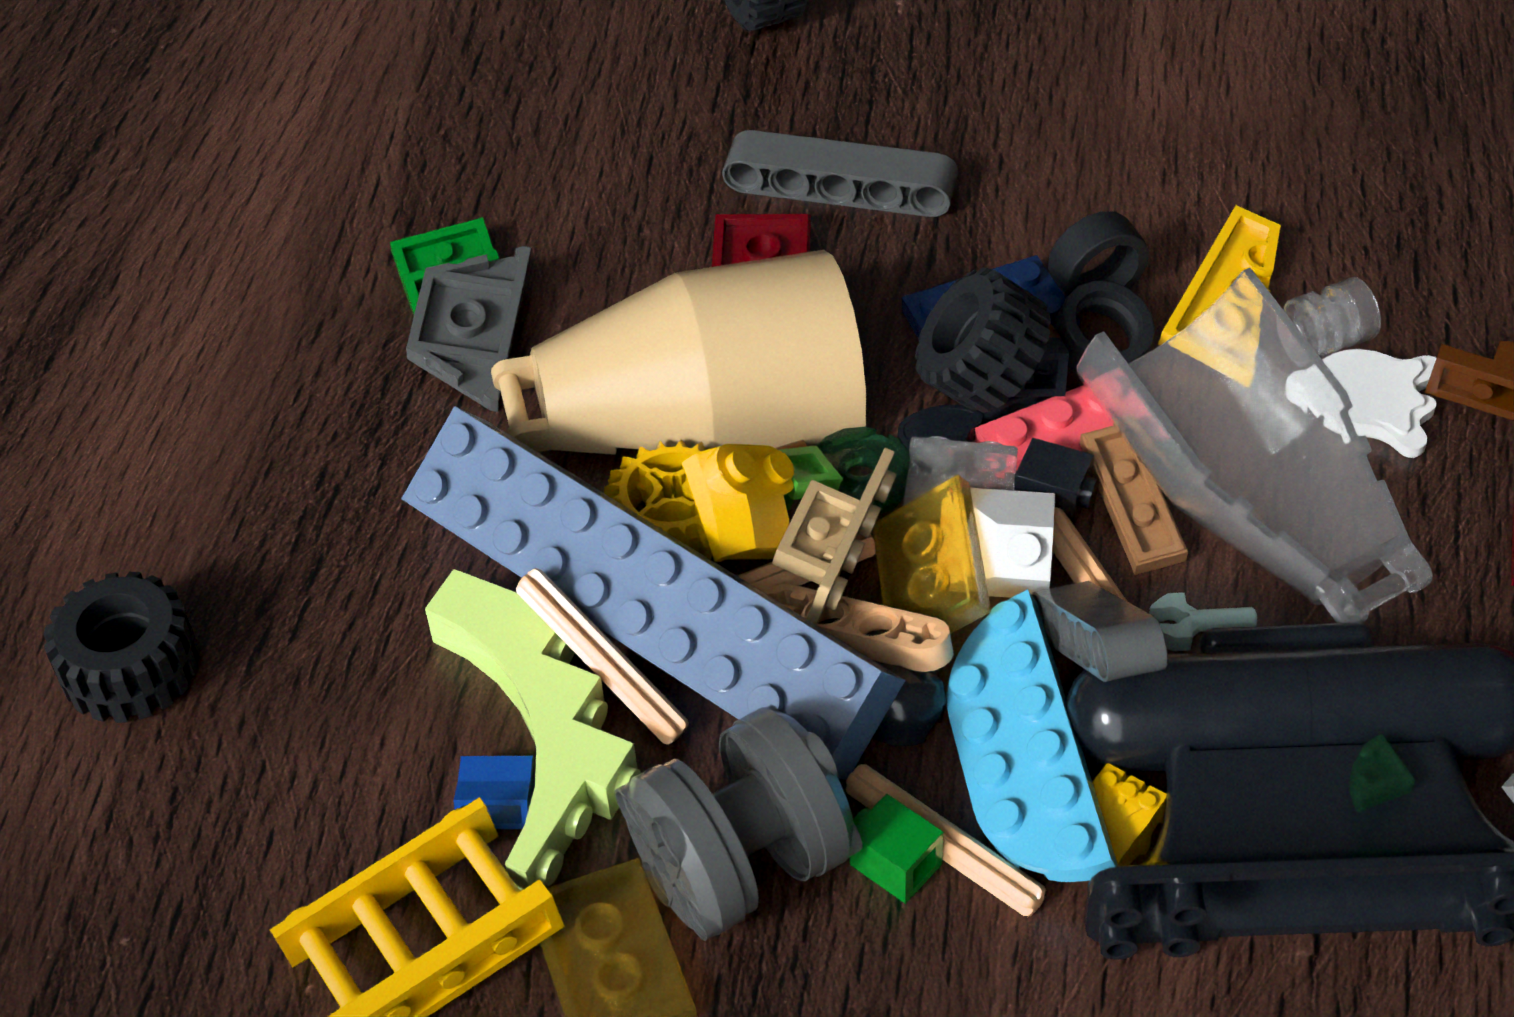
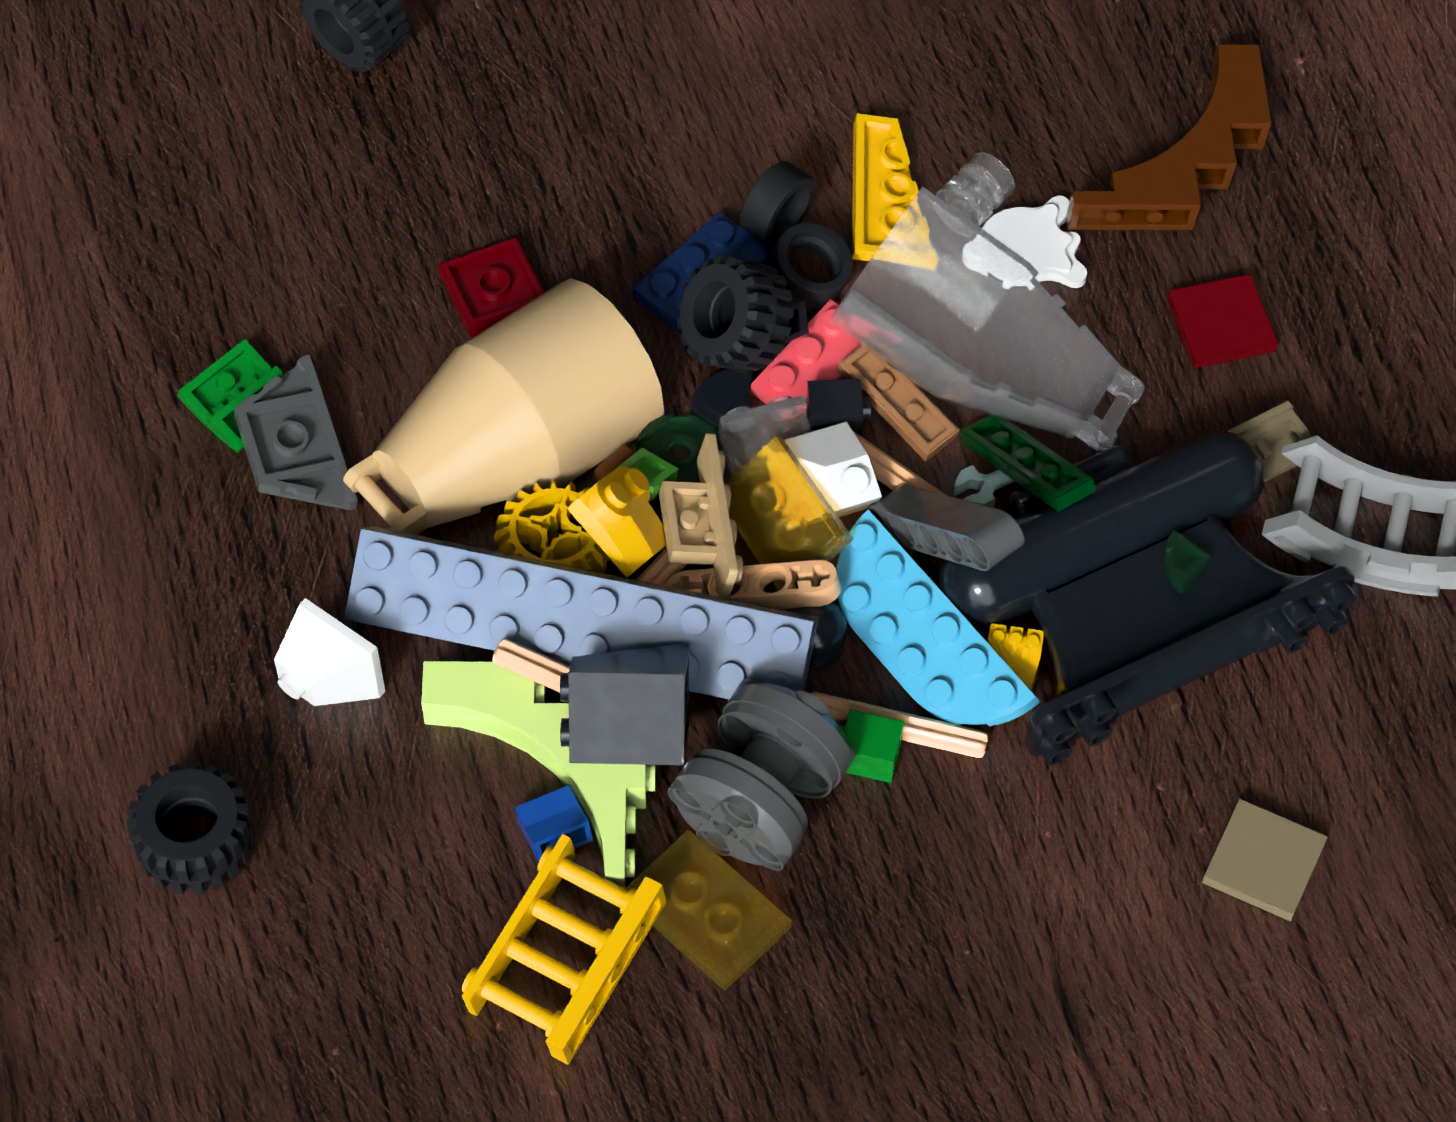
camera: 30 degrees left, 10 degrees up
(358, 534) = (327, 660): none -> white slope
(625, 685) = (627, 706): none -> slope
(841, 173) = (520, 189): dark grey beam -> none
(1244, 604) = (1027, 462): none -> dark green tile

